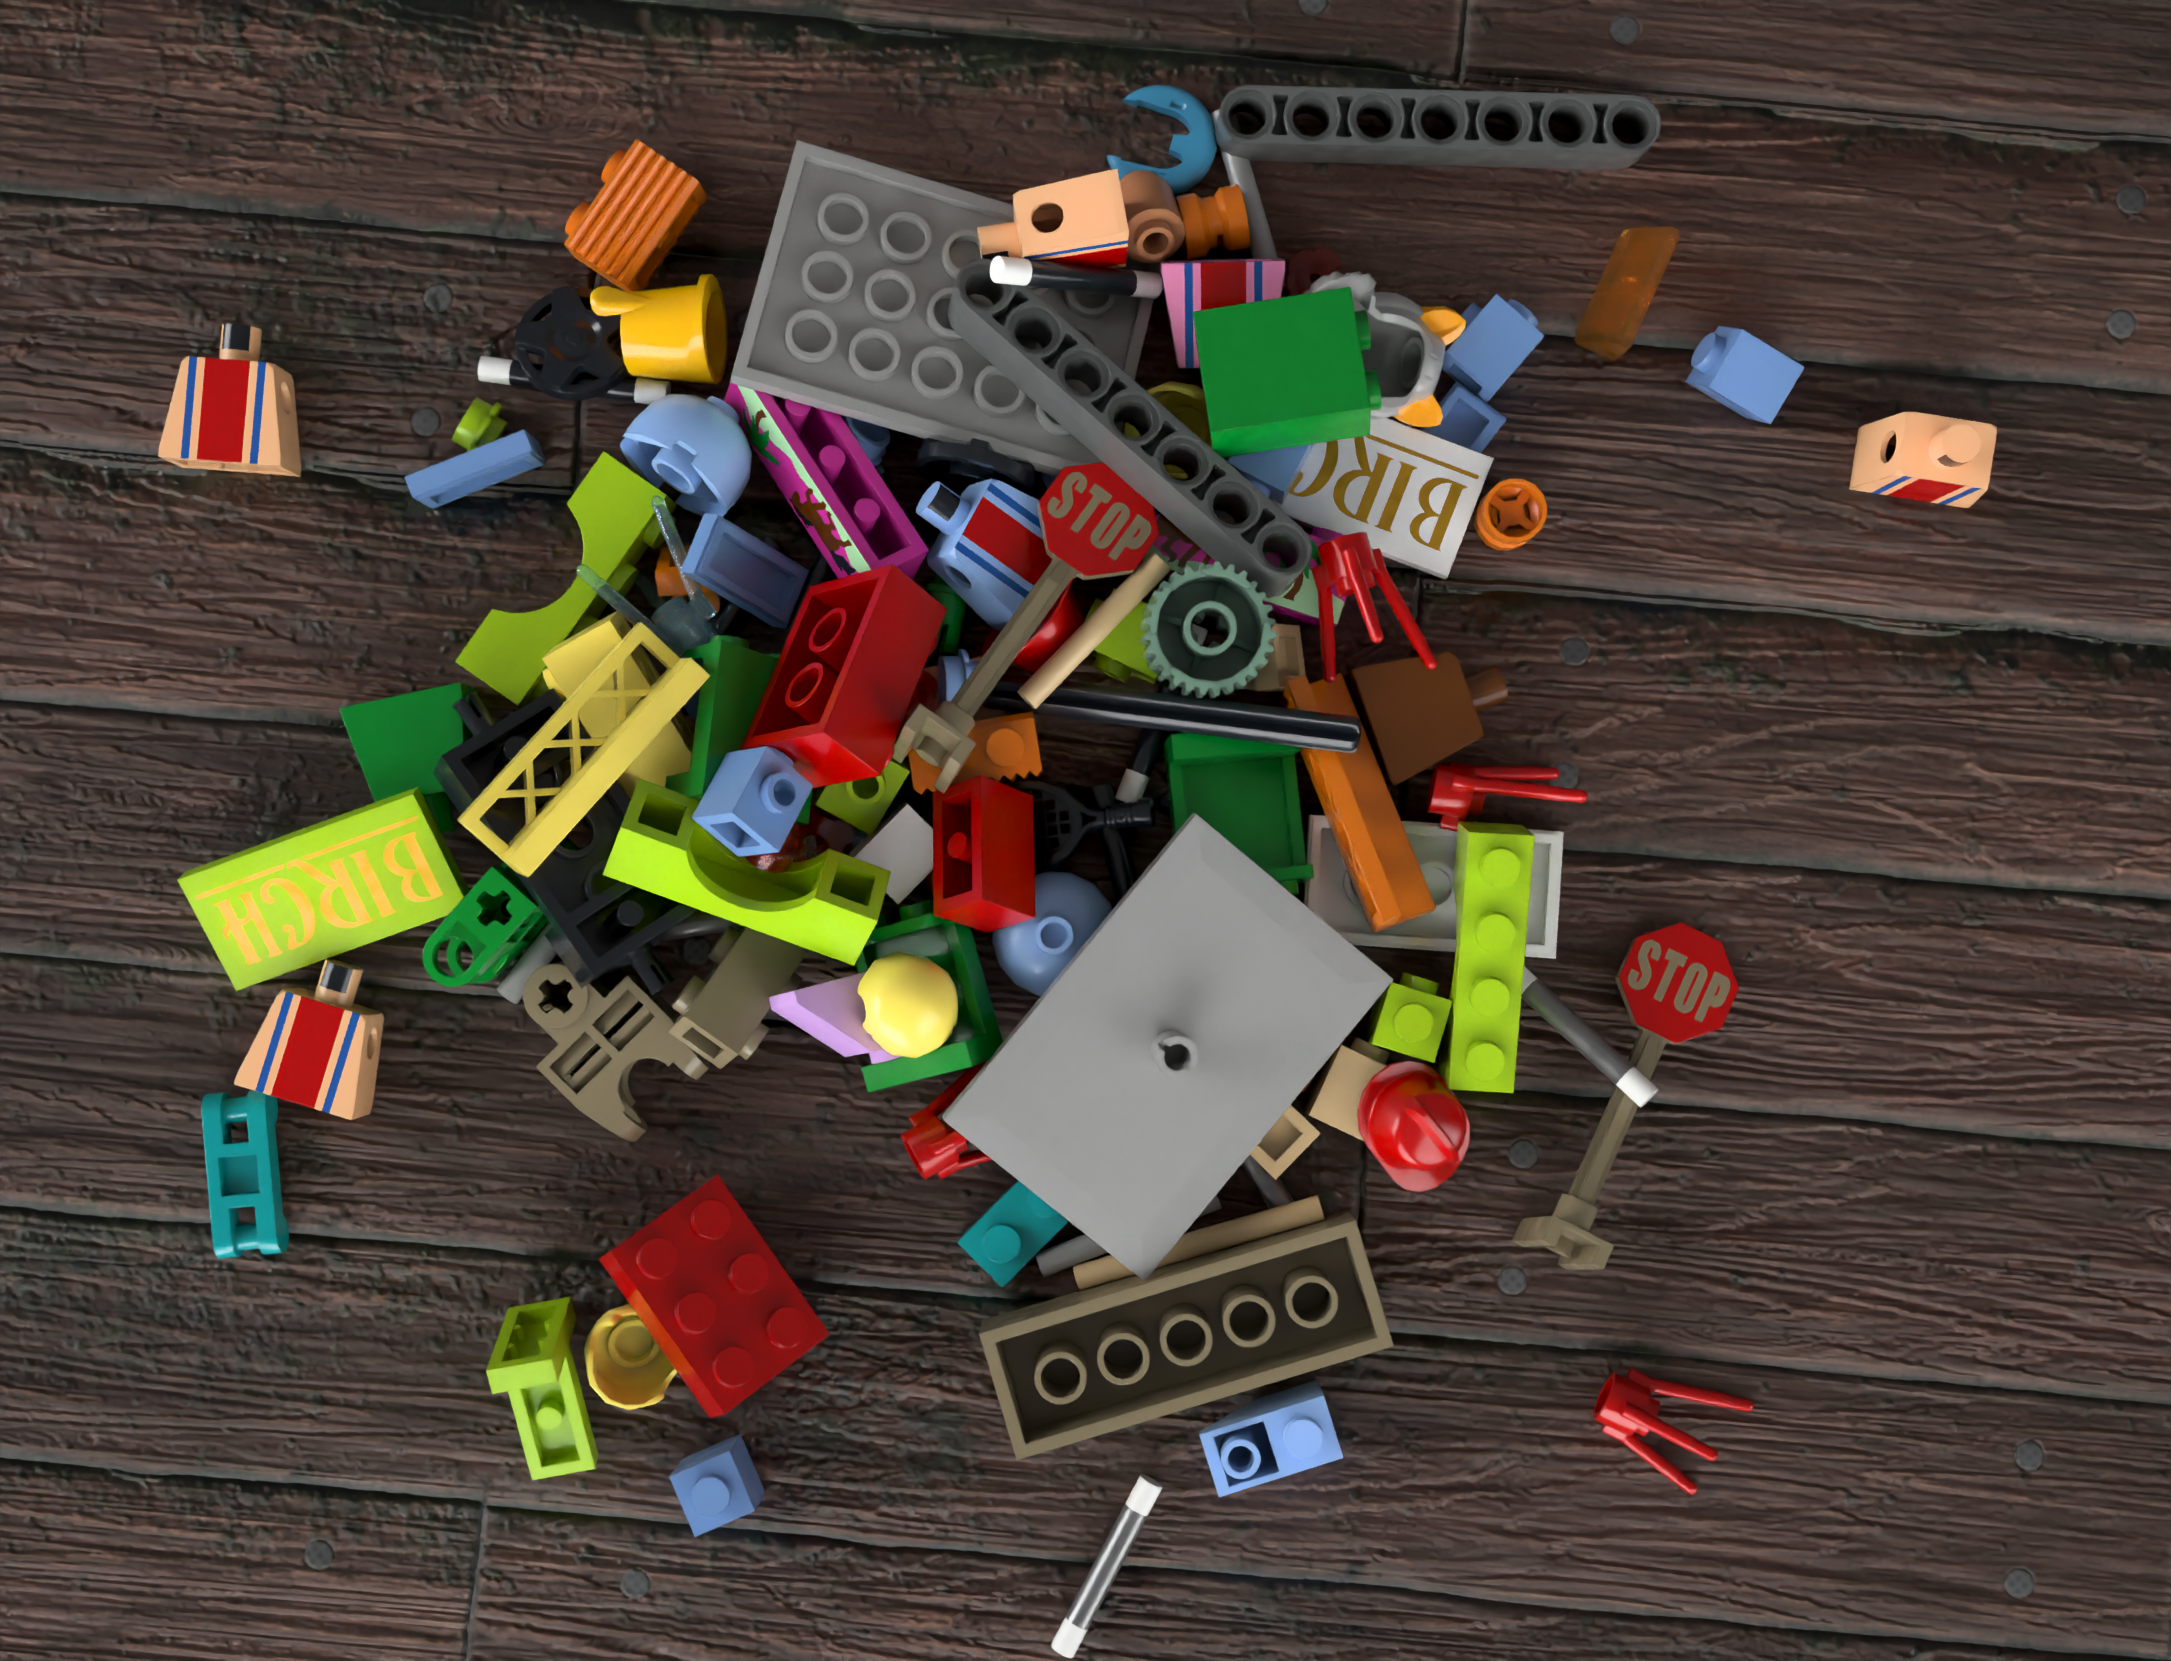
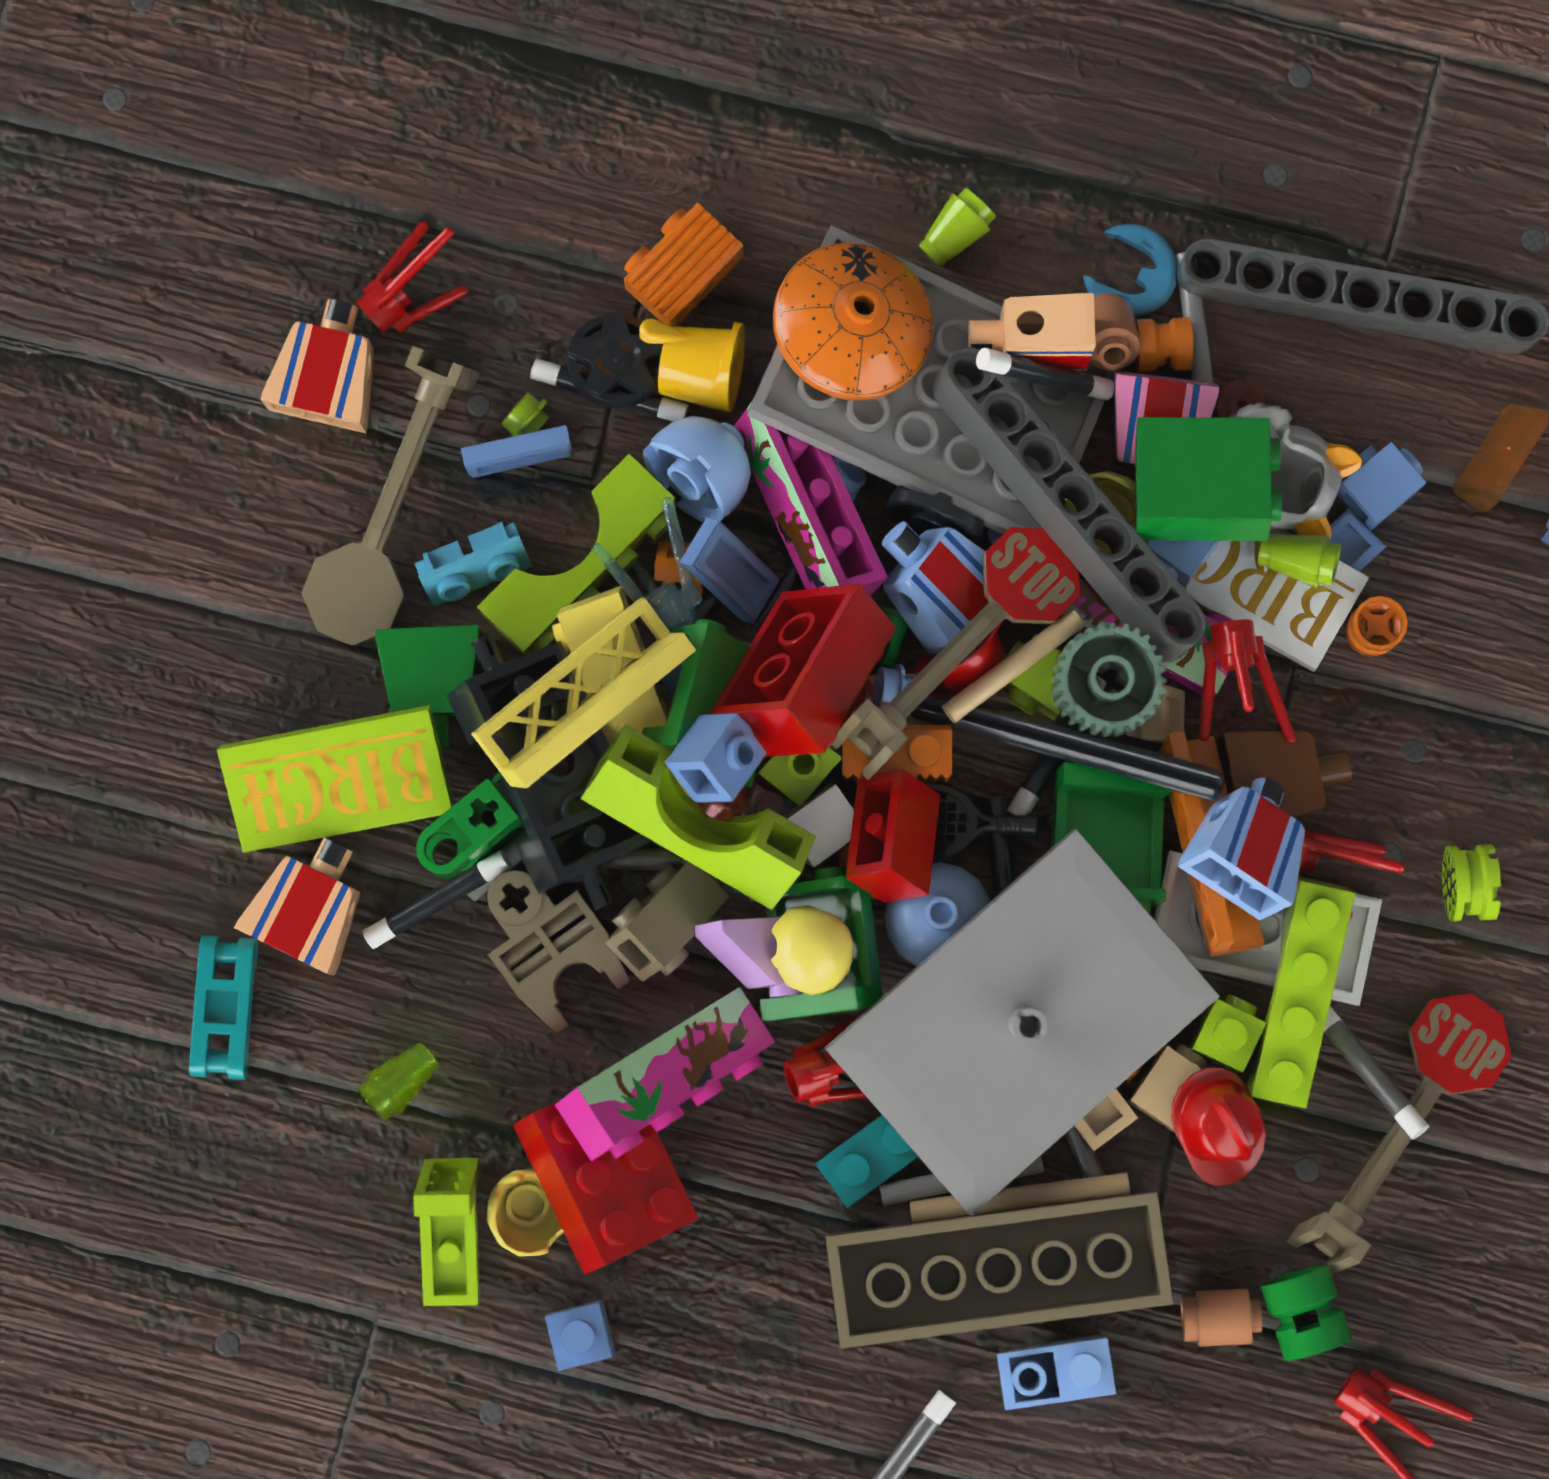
camera: 10 degrees right, 5 degrees down
(291, 315) = (385, 300): none -> red plant
(316, 654) = (357, 585): none -> dark tan piece
(424, 627) = (451, 575): none -> medium azure hinge
(460, 1226) = (398, 1081): none -> clear neon green cone
(470, 1009) = (437, 899): none -> black bar
(760, 1177) = (664, 1074): none -> brick
(833, 285) = (836, 345): none -> orange dish
(949, 120) = (957, 227): none -> lime cone
(1402, 804) = (1248, 849): none -> light blue torso
(1412, 448) = (1301, 557): none -> lime cone
(1450, 1343) = (1220, 1317): none -> nougat brick
(1536, 1303) = (1301, 1293): none -> green wheel
(1664, 797) = (1471, 882): none -> lime wheel

